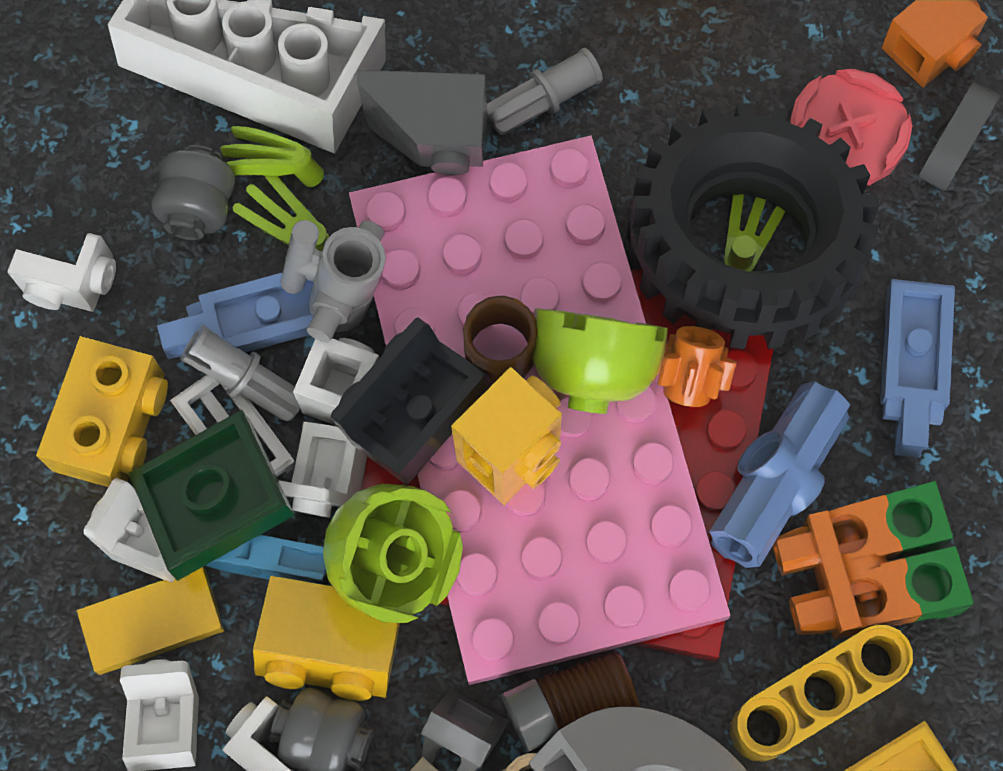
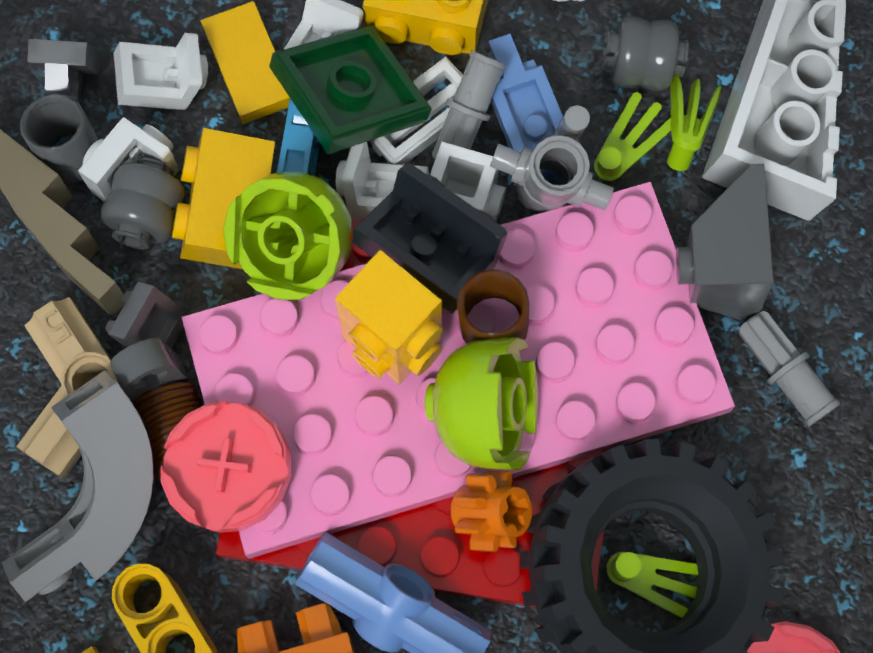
camera: 85 degrees right, 0 degrees up
(643, 627) = (226, 466): none -> coral tile

